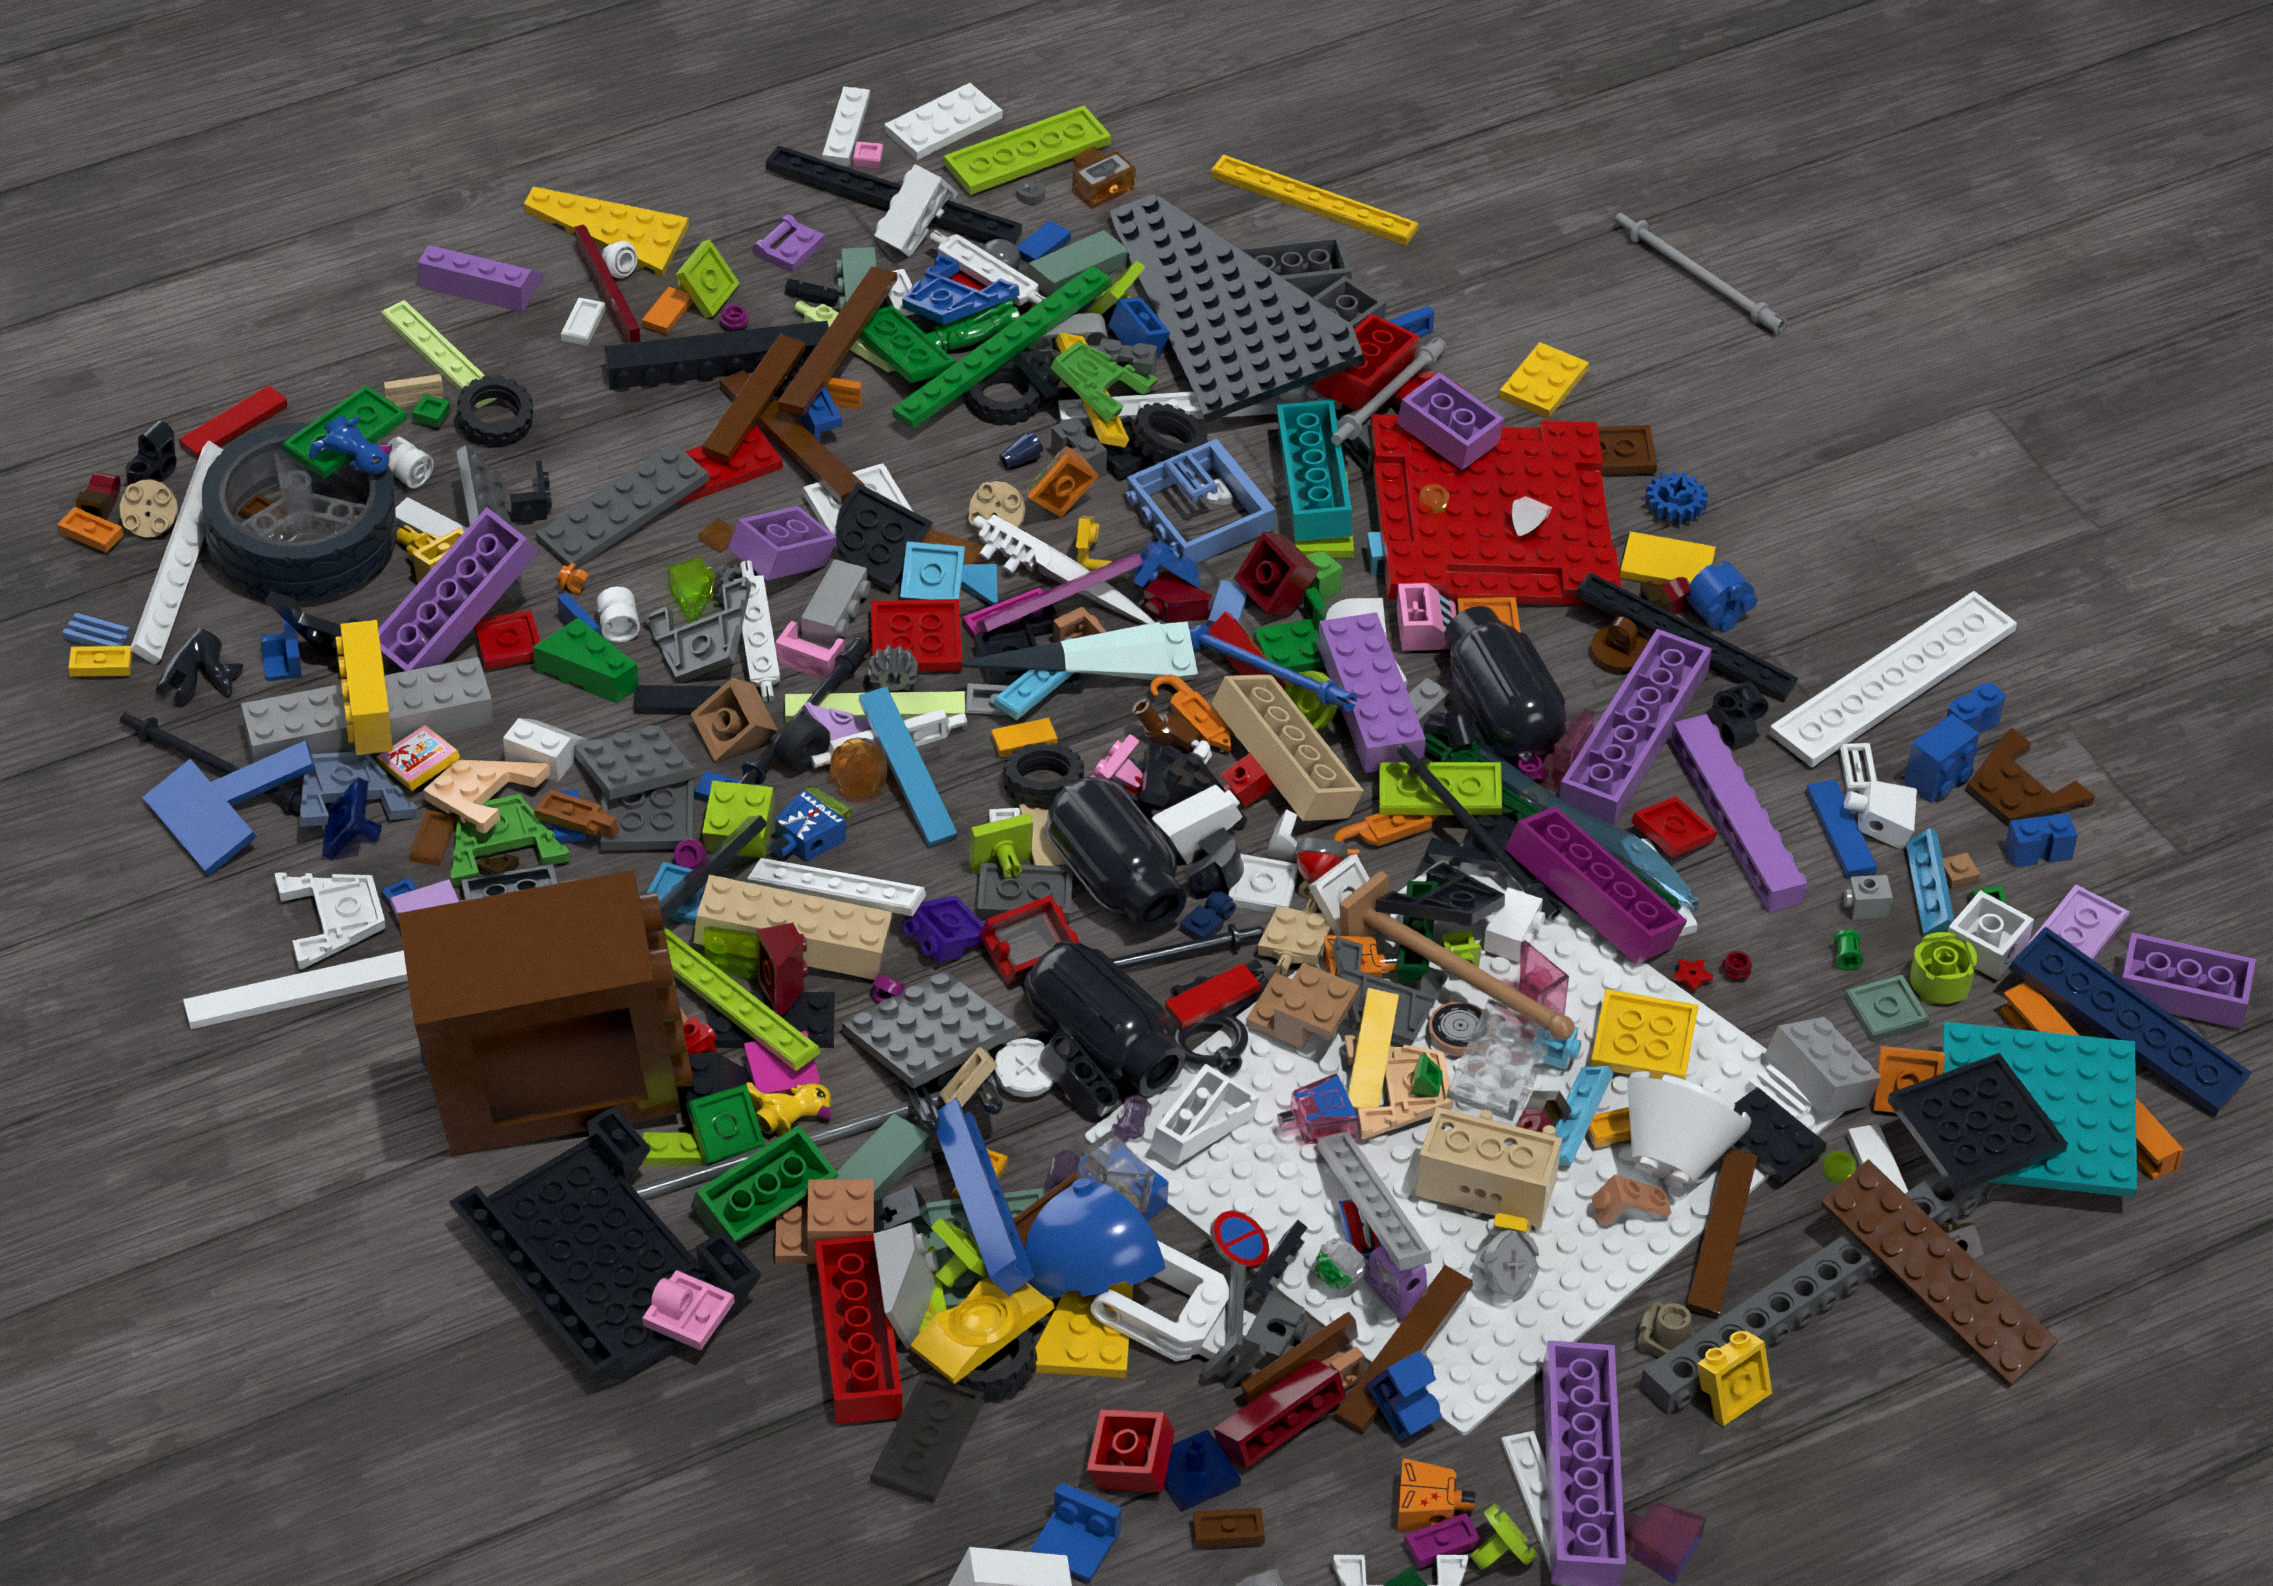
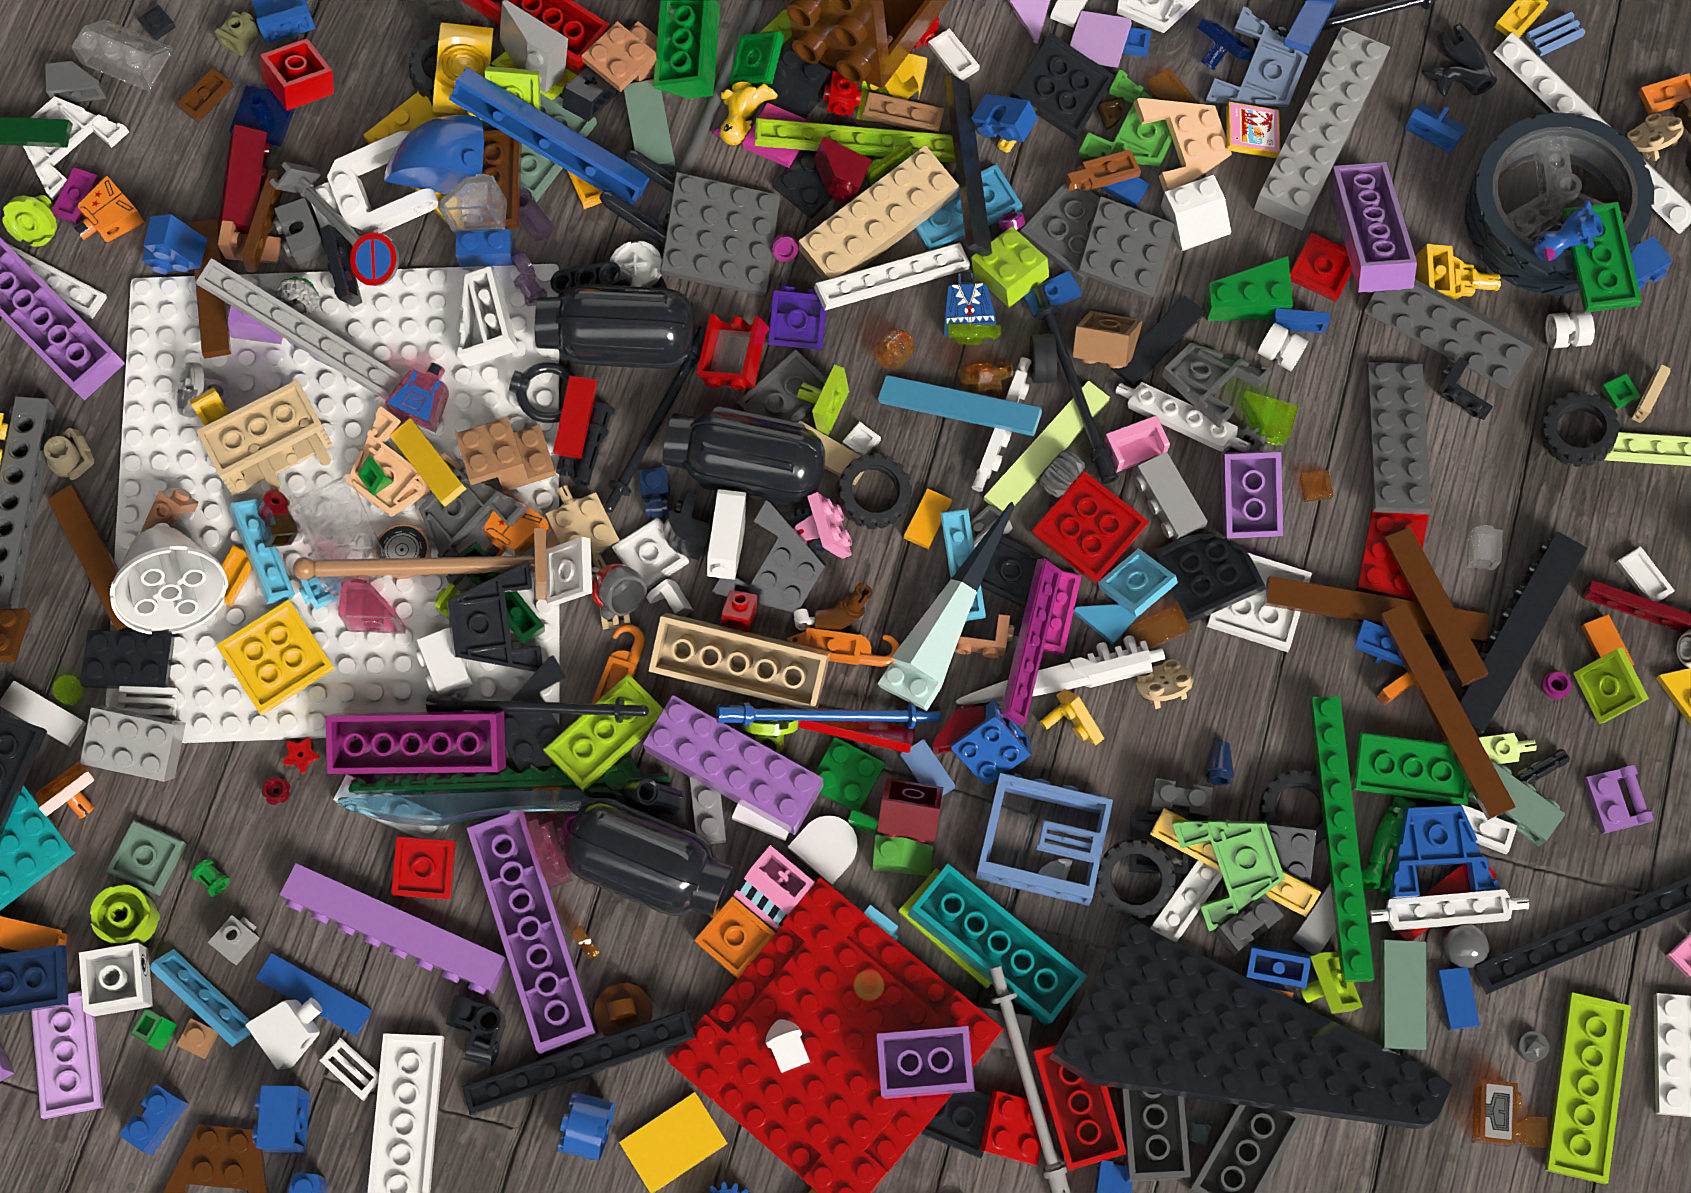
camera: 135 degrees right, 25 degrees up
(316, 631) = (1415, 144): black wing -> none
(364, 687) = (1317, 97): yellow brick -> none
(424, 519) = (1501, 304): white tile -> none
(569, 578) = (1354, 348): orange plate -> none
(665, 409) = (1484, 547): none -> clear brick
(837, 722) = (1050, 400): lavender tile -> none
(900, 848) = (894, 349): none -> clear orange head
(913, 210) = (1568, 907): white wedge -> none
(969, 1077) = (645, 217): tan tile -> none
(1062, 482) = (1149, 742): orange slope -> none
(1137, 1556) = (237, 33): none -> olive brick
(1601, 703) = (585, 943): none -> clear orange tile
(1668, 596) = (634, 1098): leg -> none

